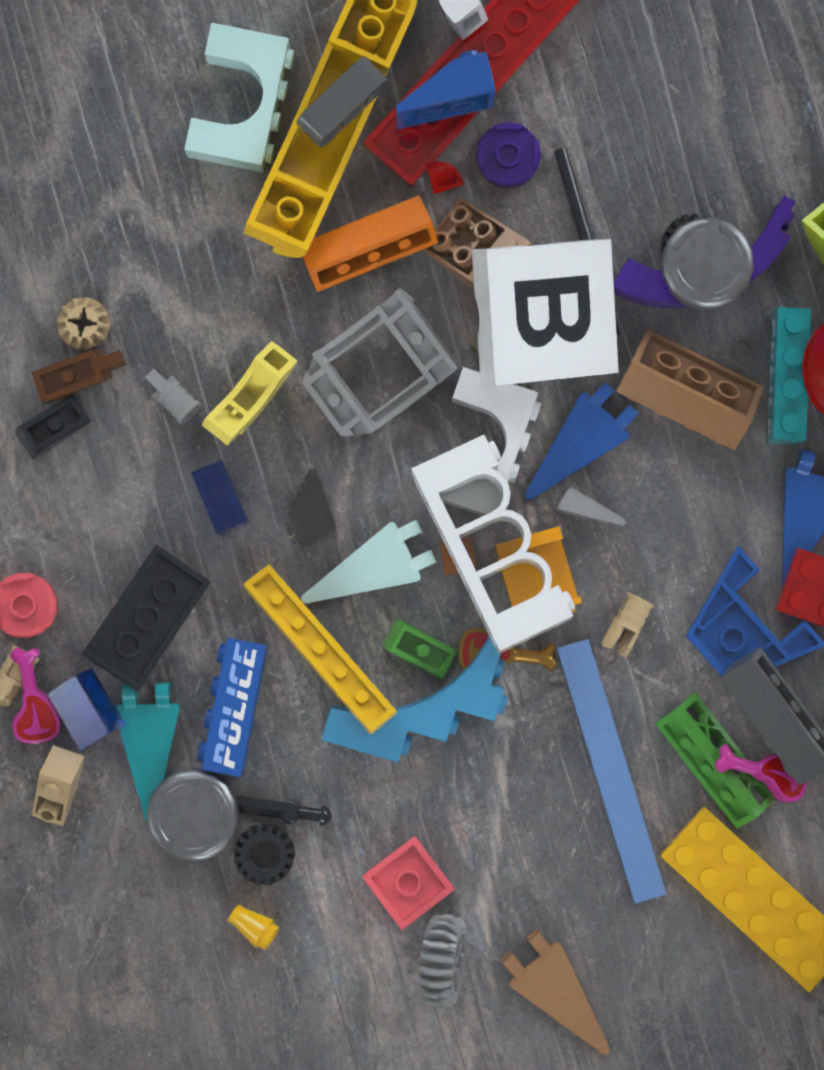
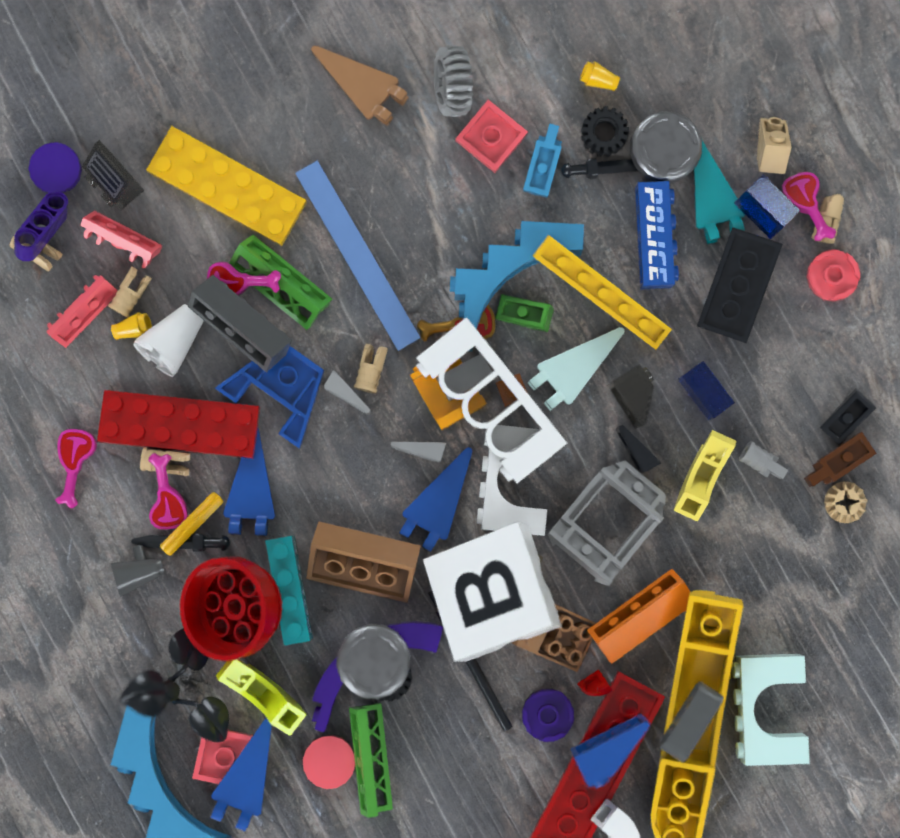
camera: 170 degrees right, 0 degrees up
(319, 435) = (641, 456): none -> black slope
(351, 832) = (543, 163): none -> dark azure hinge
(513, 585) = (466, 375): none -> light grey slope
(669, 605) = (340, 389): none -> light grey slope
(741, 153) = (364, 759): none -> bright green fence
(784, 161) = (329, 761): none -> coral tile

